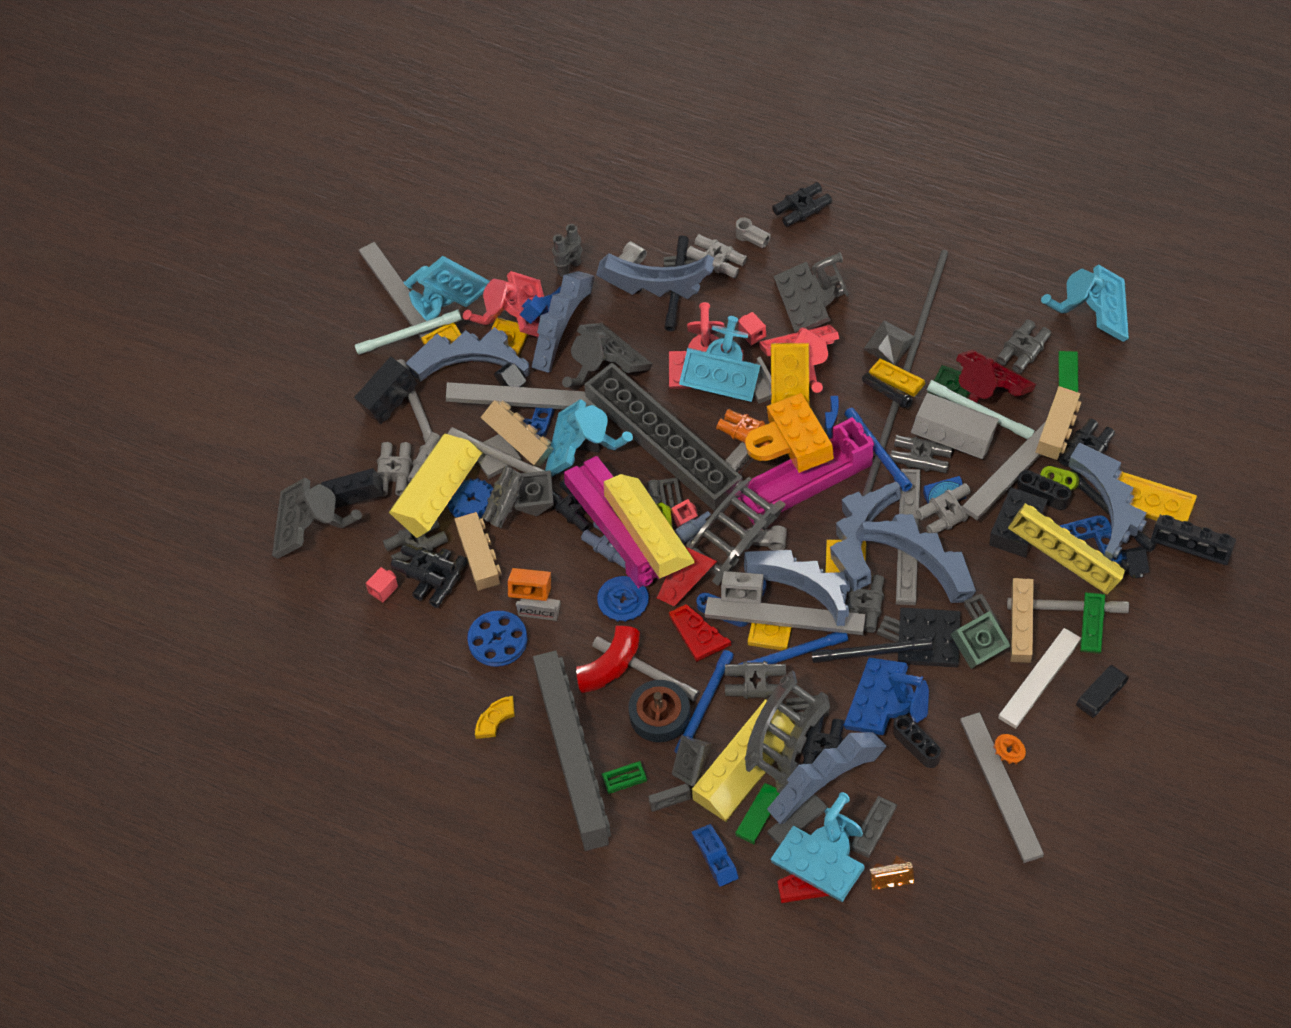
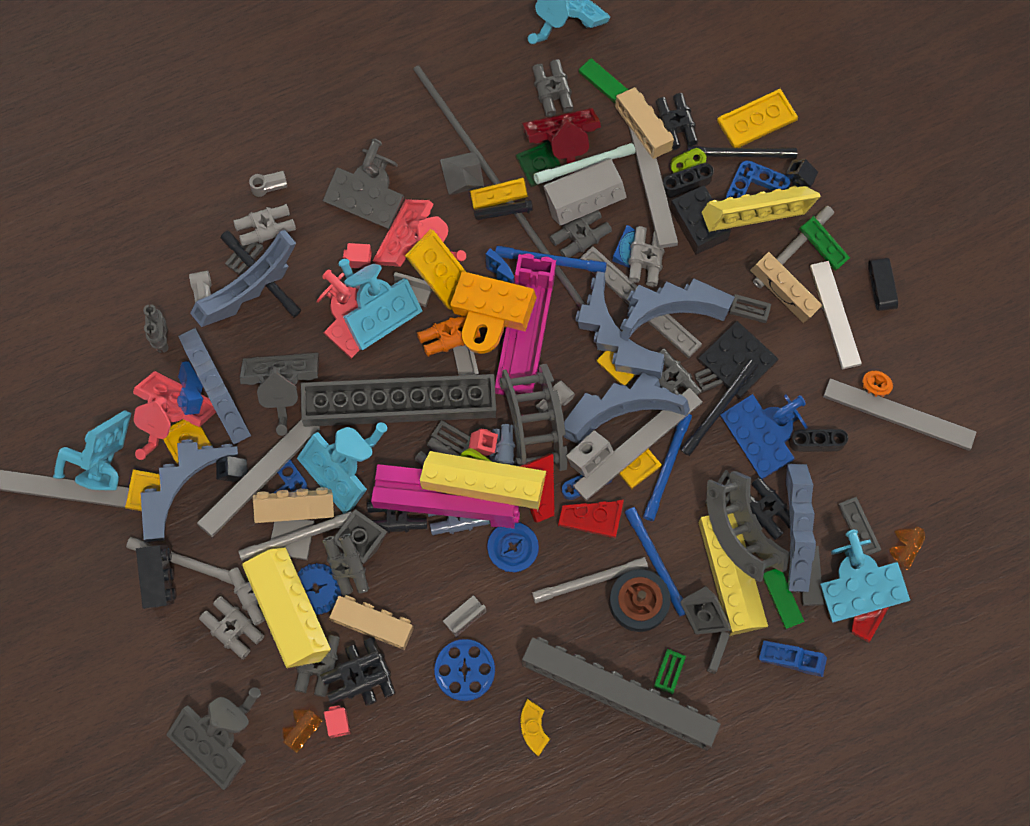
camera: 55 degrees left, 15 degrees up
(355, 487) = (225, 674): black brick -> none
(356, 569) = (306, 723): none -> clear orange tile
(445, 319) = (90, 551): light aqua piece -> none
(529, 584) = (441, 607): orange brick -> none
(611, 663) = (570, 601): red brick -> none
(748, 670) = (681, 510): dark grey pin -> none
(802, 204) = (281, 131): black pin -> none
(980, 639) = (778, 328): sand green brick -> none
(1105, 475) = (742, 138): sand blue arch -> none
(1193, 539) = (817, 122): black brick -> none

